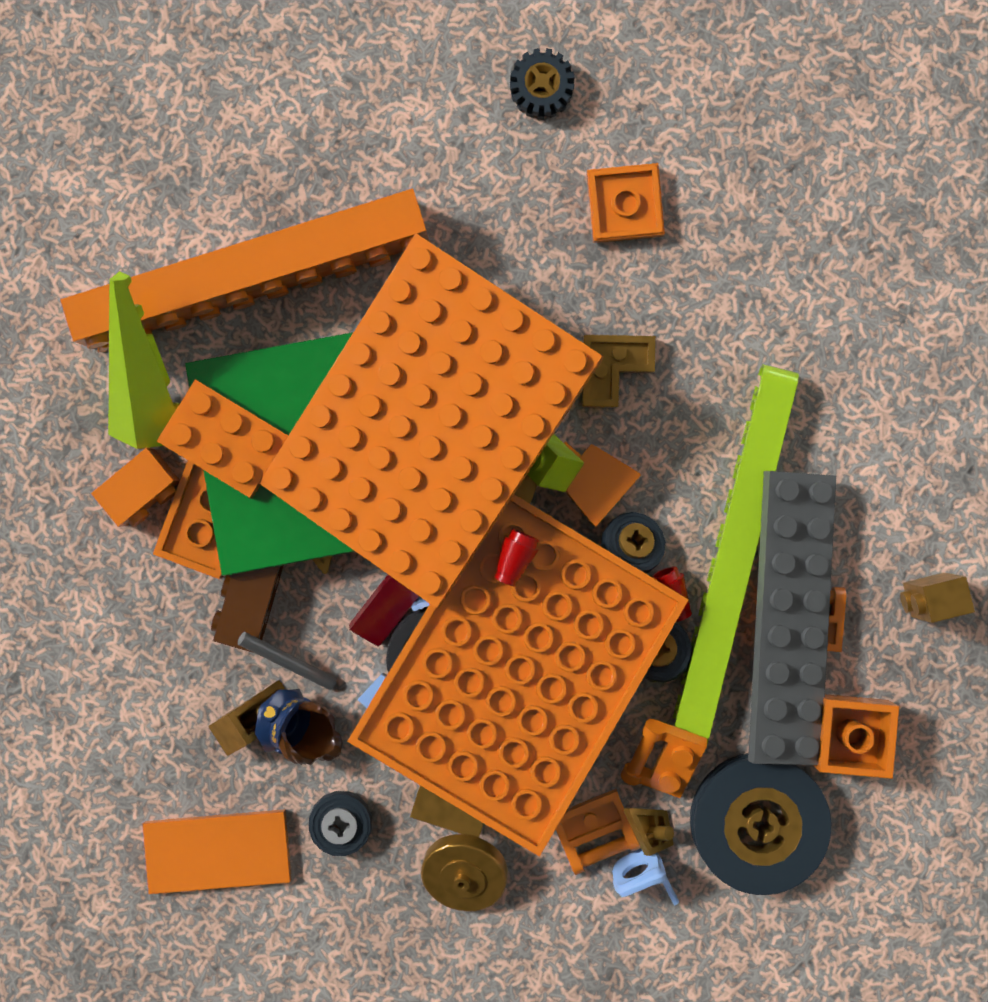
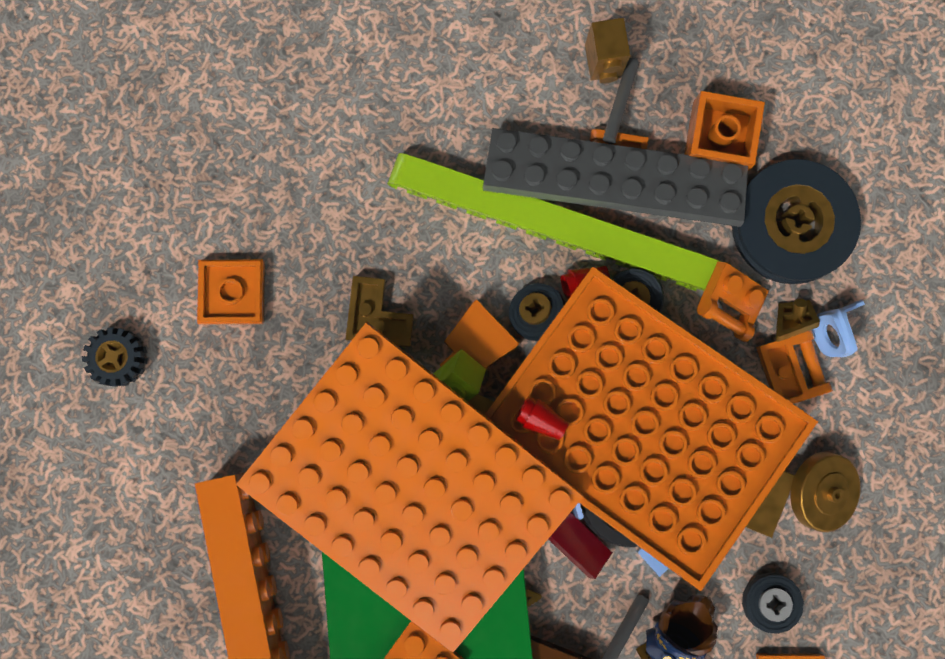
camera: 90 degrees left, 5 degrees down
(881, 618) = (620, 101): none -> dark grey bar

